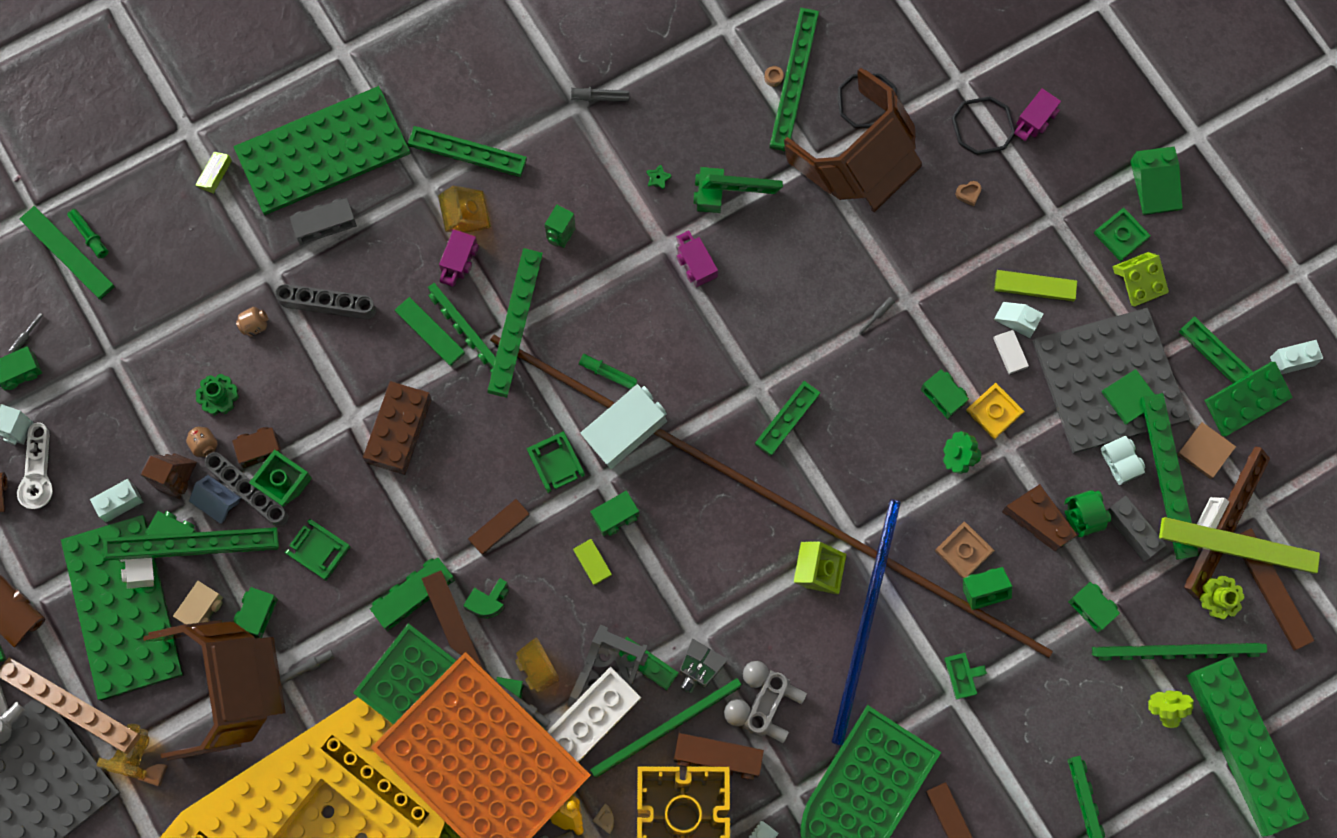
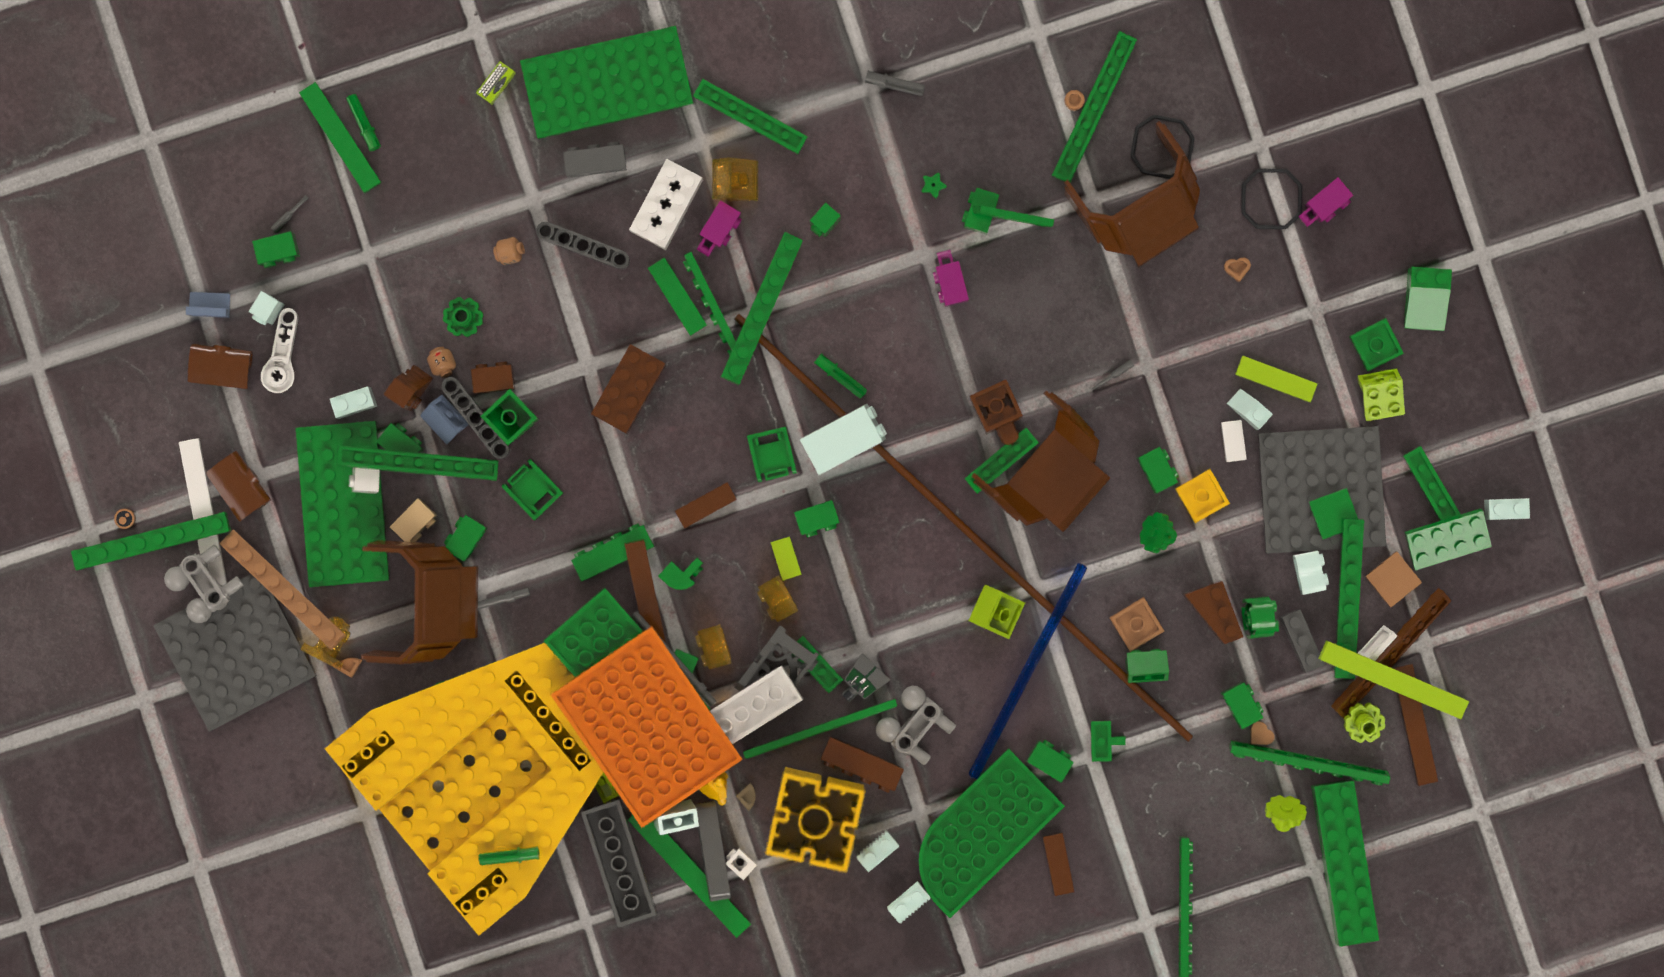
camera: 15 degrees right, 15 degrees up
(411, 243) = (662, 191): none -> white brick
(592, 602) = (778, 599): none -> clear yellow slope
(772, 369) = (997, 411): none -> reddish brown brick
(849, 418) = (1058, 475): none -> reddish brown piece
(913, 708) = (1049, 760): none -> green brick
(1121, 633) = (1261, 734): none -> medium nougat tile

